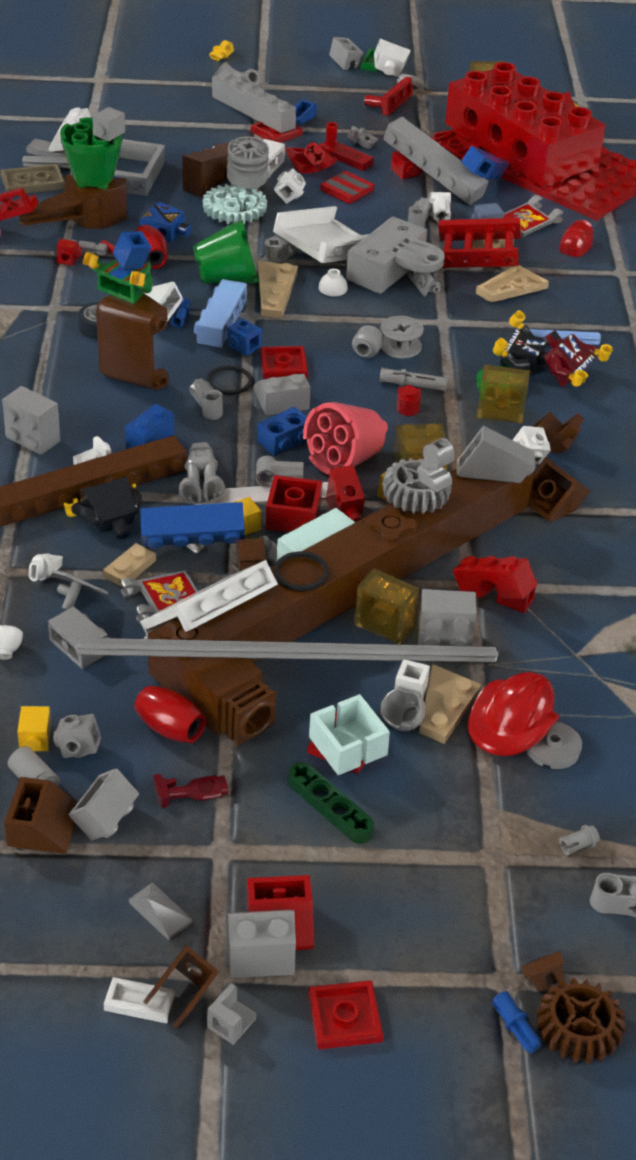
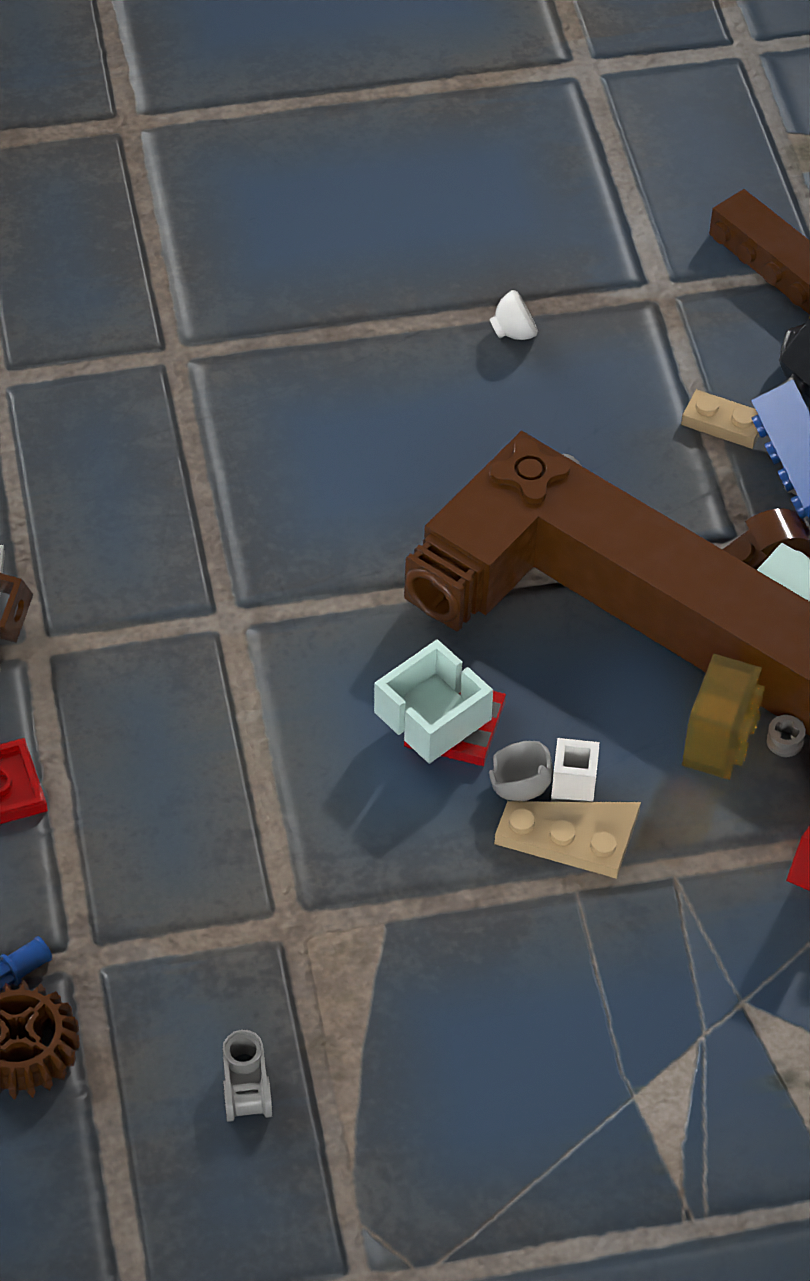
camera: 80 degrees right, 10 degrees up
(28, 764) = (295, 400): light grey piece -> none
(34, 727) = (368, 384): yellow brick -> none
(40, 817) = (219, 419): reddish brown slope -> none
(43, 565) = (680, 327): white piece -> none
(68, 627) = (549, 390): light grey brick -> none
(71, 592) = (649, 358): light grey shield -> none
(77, 736) = (361, 424): light grey brick -> none
(104, 805) = (252, 475): light grey brick -> none
(159, 591) = (679, 473): flag -> none
(160, 911) = (114, 571): light grey slope -> none
(170, 714) = (421, 502): red piece -> none
(198, 789) = (321, 575): dark red piece -> none
(215, 598) = (618, 488): white panel -> none
(262, 943) = (66, 662): light grey slope -> none
(283, 650) = (554, 612): light grey axle -> none
(285, 894) = (120, 684): red slope -> none
(300, 587) = (710, 605): black piece -> none
(326, 804) = (332, 715): dark green beam -> none
(446, 618) = (717, 796): light grey piece -> none
(513, 714) = (557, 911): red piece -> none
(539, 968) = (101, 988): reddish brown tile -> none
(558, 748) = (524, 996): light grey plate -> none
(586, 837) = (348, 1031): light grey pin -> none

